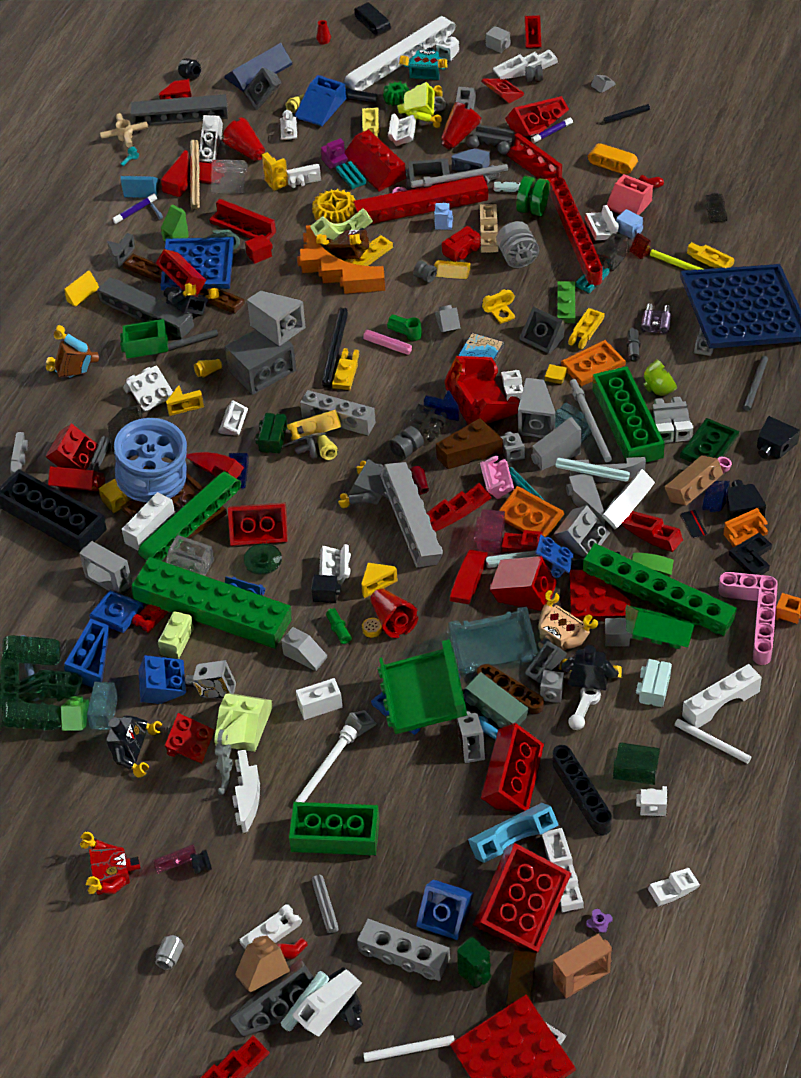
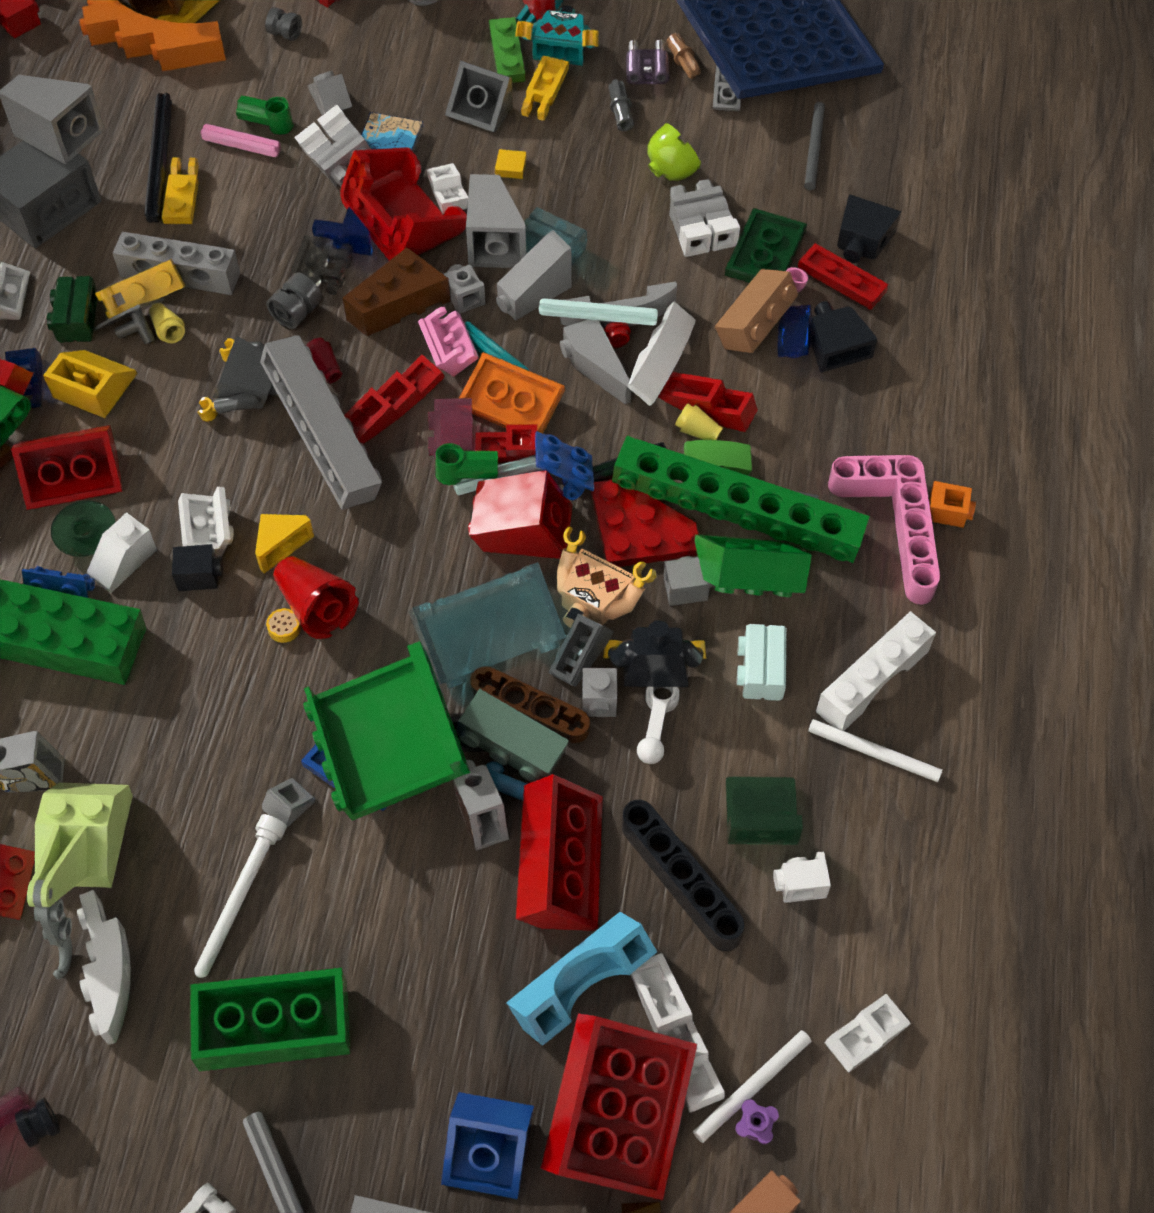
camera: 15 degrees left, 10 degrees up
(275, 476) = (88, 381): none -> yellow slope
(283, 574) = (121, 552): none -> white slope
(303, 649) = (172, 682): light grey slope -> none
(319, 698) = (211, 771): white panel -> none
(338, 626) = (226, 631): green axle -> none
(444, 358) = (329, 157): none -> hips
(452, 269) = (325, 17): yellow slope -> none
(468, 576) = (429, 520): red slope -> none
(488, 548) = (454, 464): none -> green piece
(498, 303) = (404, 61): yellow bracket -> none
(579, 396) = (557, 195): light grey bar -> none
(581, 531) = (598, 416): light grey slope -> none
(582, 914) = (752, 1086): none -> white bar
(592, 360) = (564, 140): orange tile -> none
(601, 296) = (559, 35): none -> teal torso
(603, 485) = (617, 333): none -> red plate
(628, 414) = (635, 217): green brick -> none
(642, 543) = (698, 424): none -> light yellow cone
(681, 316) = (683, 55): none -> medium nougat axle
(693, 523) = (767, 380): black sticker -> none
(744, 527) = (850, 379): orange hinge -> none
(749, 552) = (864, 423): black plate -> none
(755, 466) = (843, 276): none -> red plate

